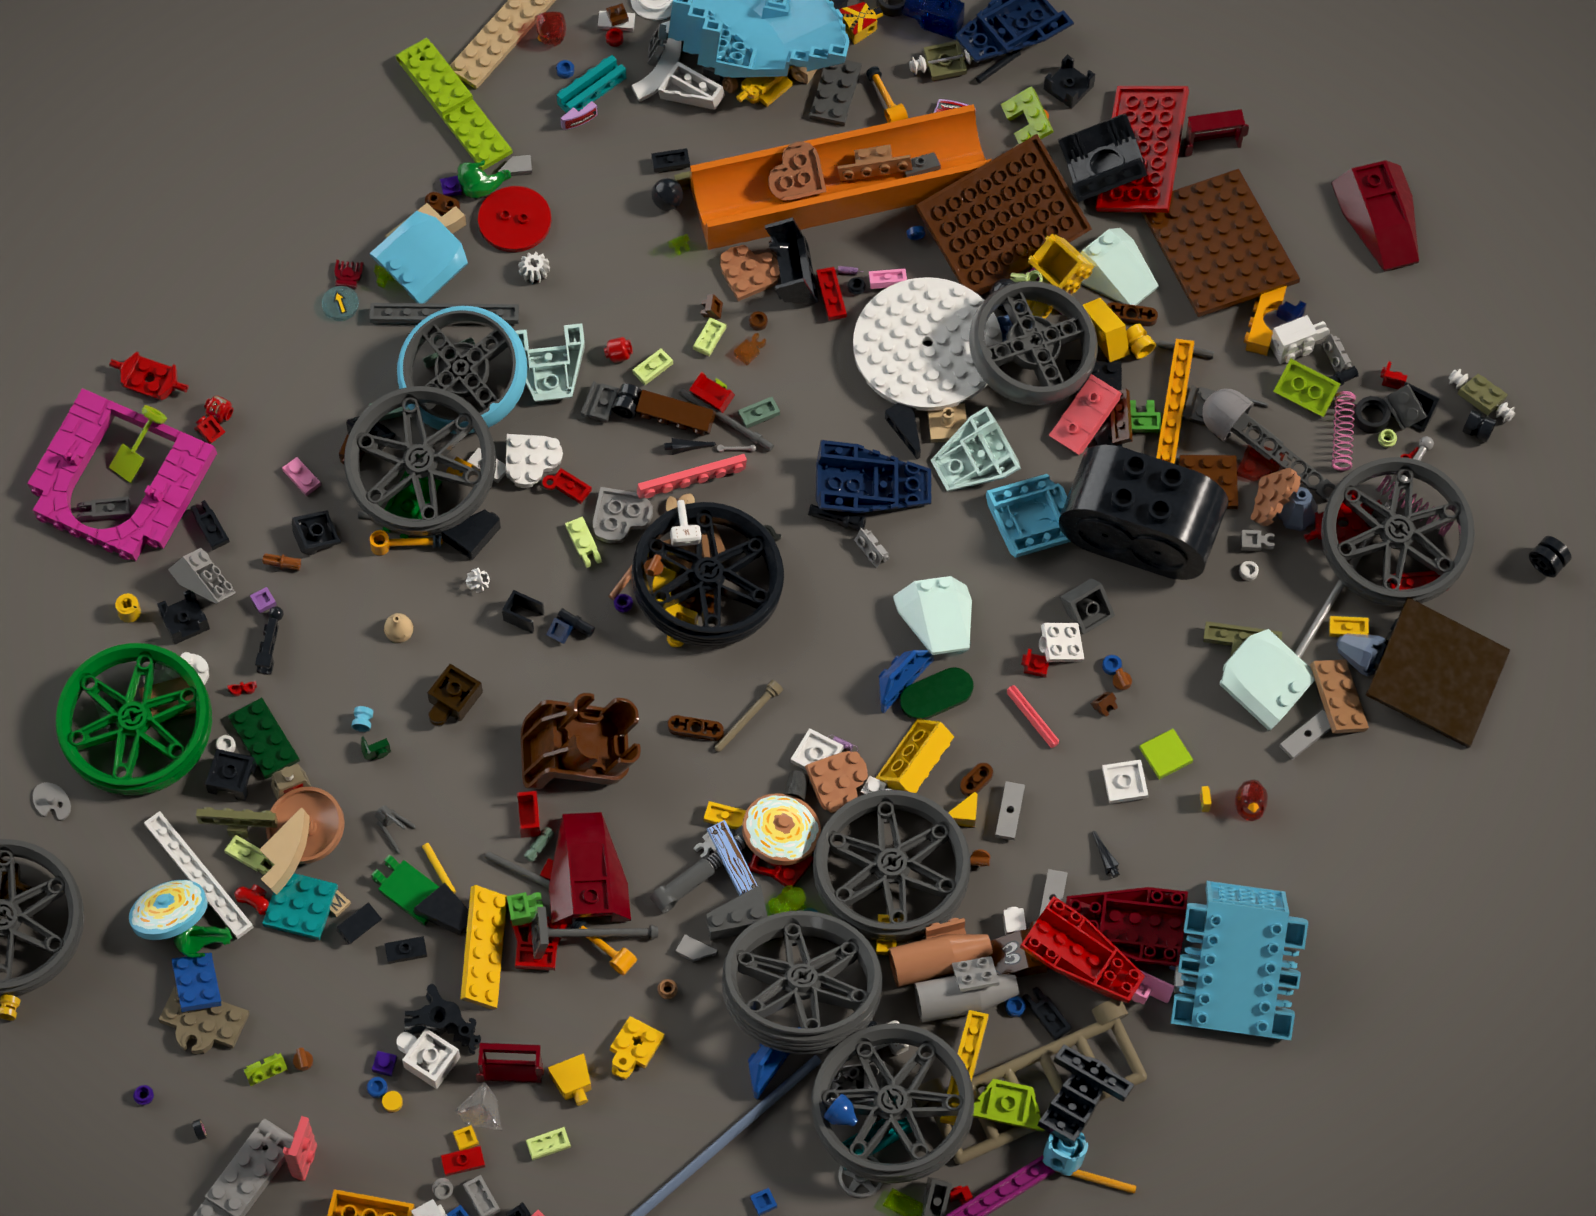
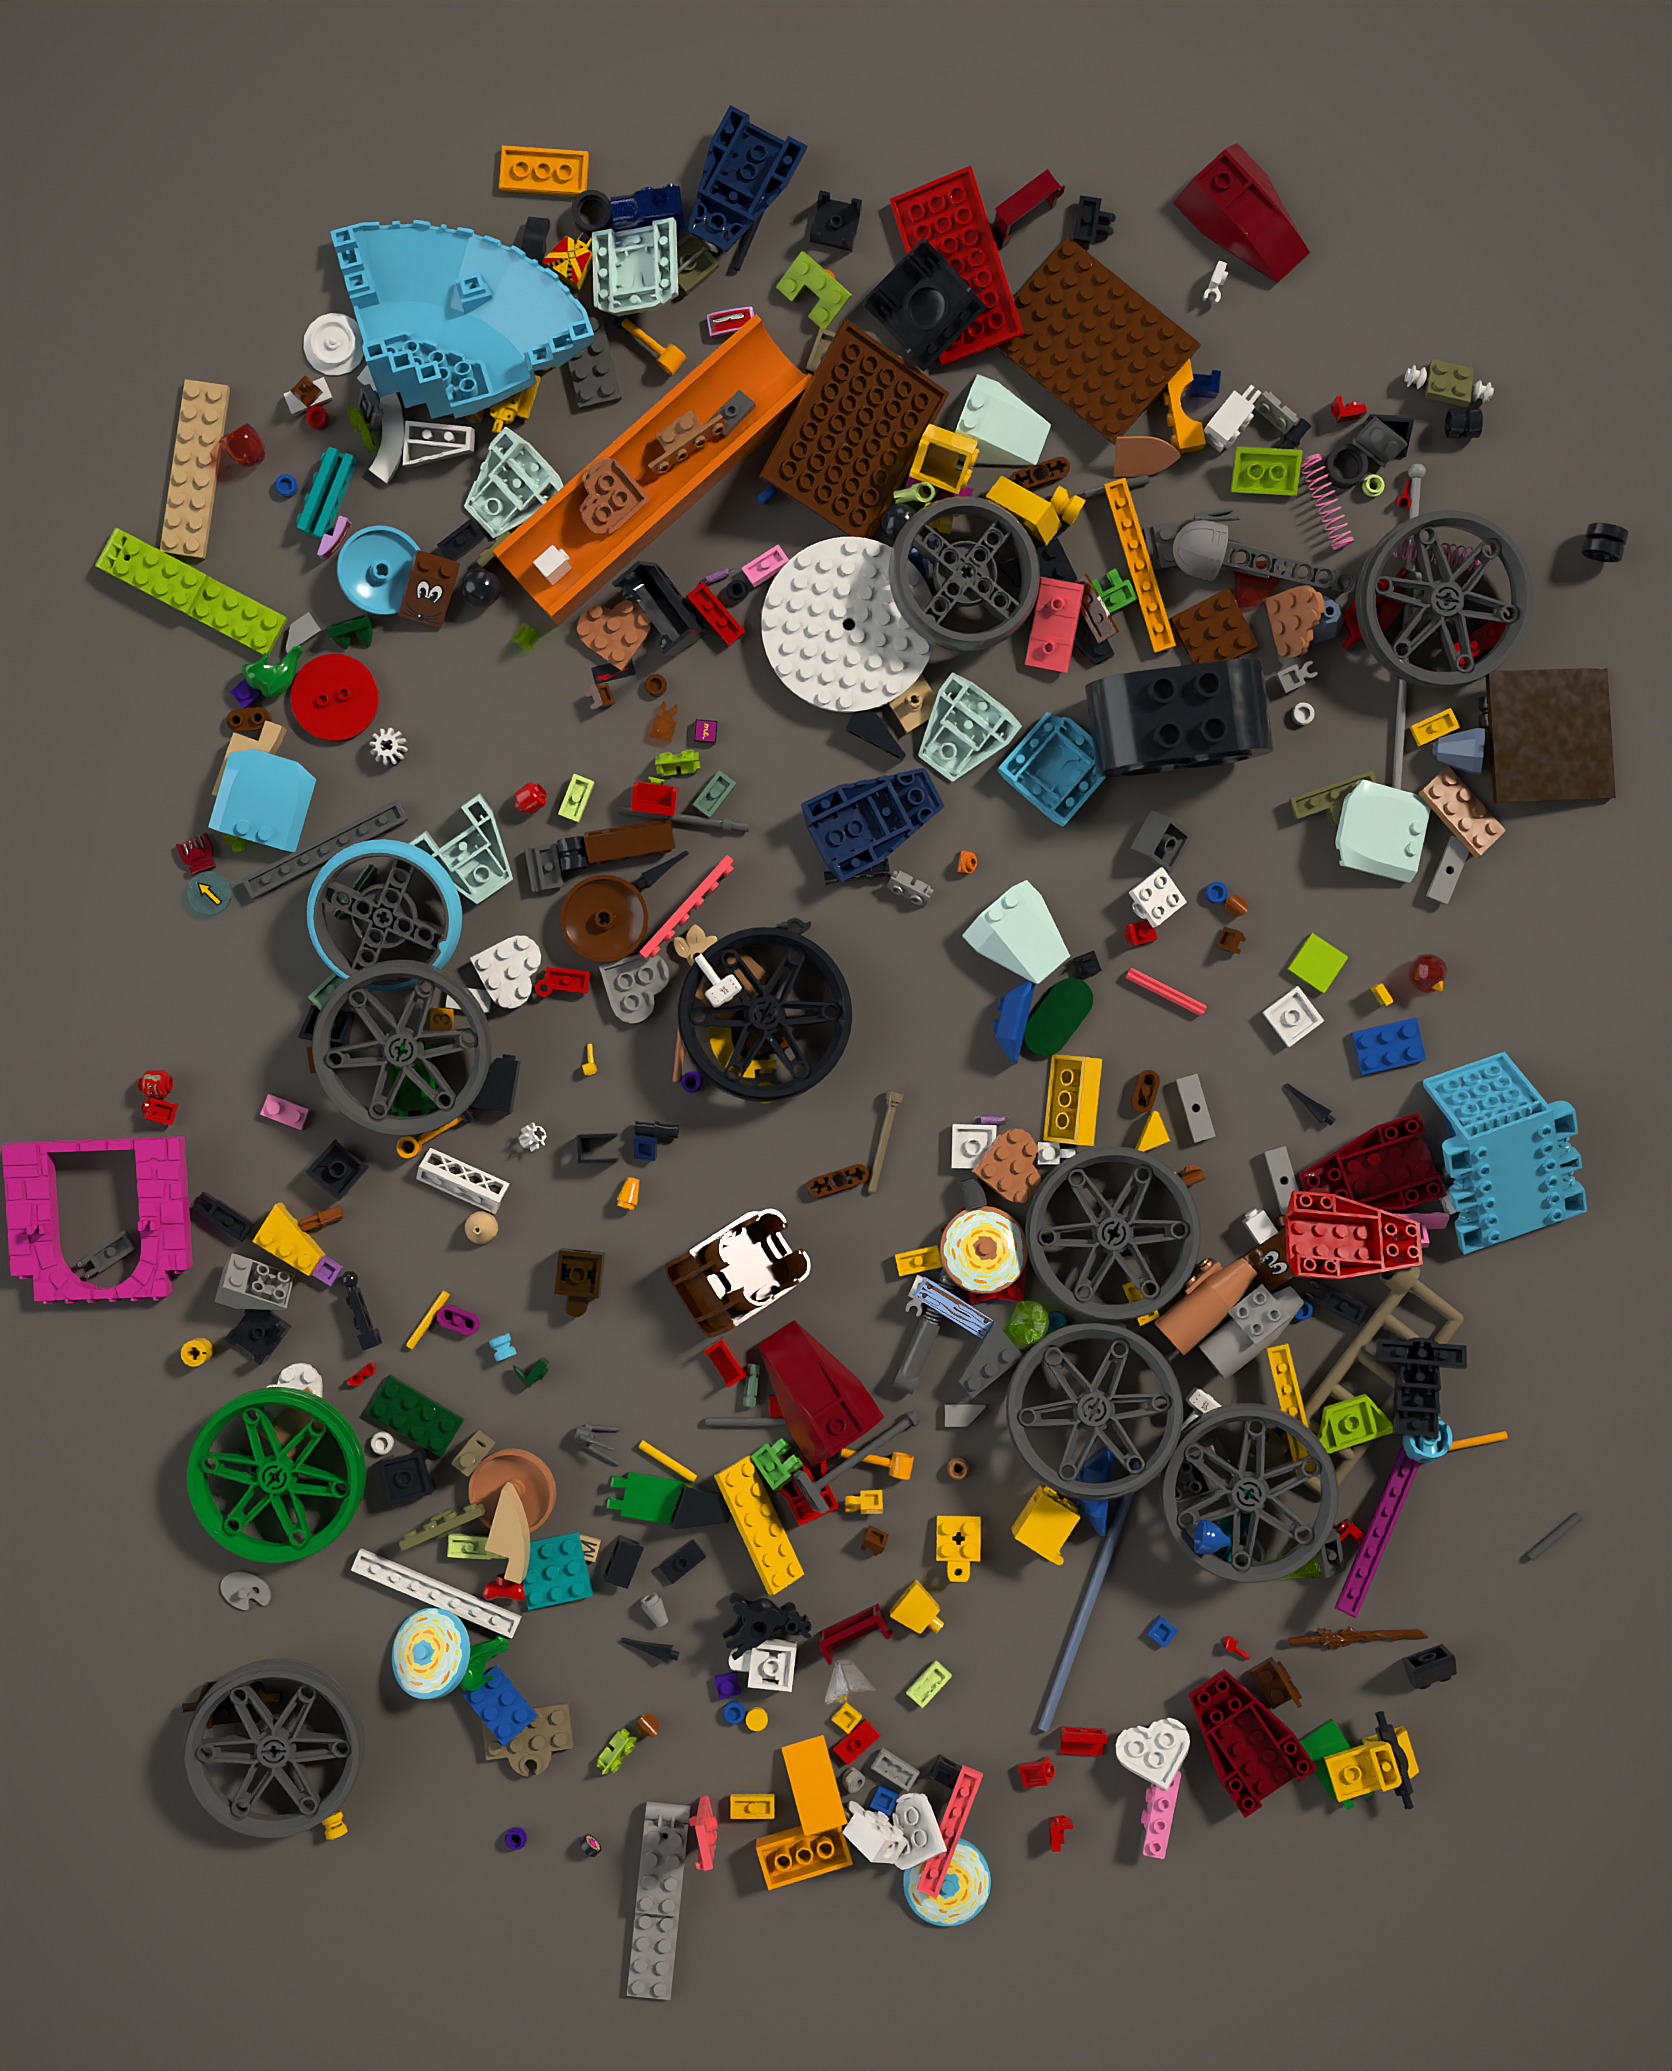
camera: 25 degrees left, 25 degrees up
(127, 461) = (96, 1191): lime piece -> none
(137, 368) = (44, 1088): red plate -> none
(246, 561) = (287, 1241): none -> yellow wedge
(317, 673) = (427, 1319): none -> yellow bar
(341, 684) = (458, 1321): none -> magenta plate
(348, 1009) = (661, 1651): none -> black piece
(348, 1166) = (752, 1806): none -> yellow plate
(362, 973) = (654, 1608): none -> light grey cone
(401, 588) = (462, 1187): none -> white fence
(409, 1169) = (814, 1785): none -> light orange tile
(526, 658) = (629, 1194): none -> light orange cone
(550, 556) = (589, 1068): none -> yellow hand
(561, 179) = (358, 625): none -> dark green tile
(569, 1007) = (874, 1540): none -> reddish brown tile
(580, 976) = (869, 1502): none -> yellow plate
(583, 540) = (612, 1033): yellowish green hinge -> none
(600, 150) = (375, 568): none -> medium azure dish
(624, 454) = (604, 918): none -> reddish brown dish
(628, 177) = (428, 589): none -> reddish brown slope
(642, 57) = (359, 425): none -> clear neon green slope
(653, 566) = (712, 1049): dark orange plate -> none
(709, 337) = (616, 732): yellowish green plate -> none
(715, 1059) = (1046, 1523): none -> yellow container
(720, 448) = (696, 854): light grey hinge -> none
(729, 135) = (511, 484): none -> light aqua wedge
(729, 200) = (553, 564): none -> white brick
(729, 298) = (609, 672): none -> black sticker
(751, 380) = (685, 760): none -> lime hinge
(777, 368) = (705, 731): none -> magenta tile
(902, 43) = (635, 268): none -> light aqua wedge
(926, 551) = (967, 862): none -> orange plate
(981, 667) = (1087, 964): none -> black tile
(1192, 842) = (1388, 1046): none -> blue plate
(1216, 334) = (1142, 456): none -> nougat shield
(1259, 165) = (1087, 220): none -> black hinge
(1337, 245) = (1218, 277): none -> white plate

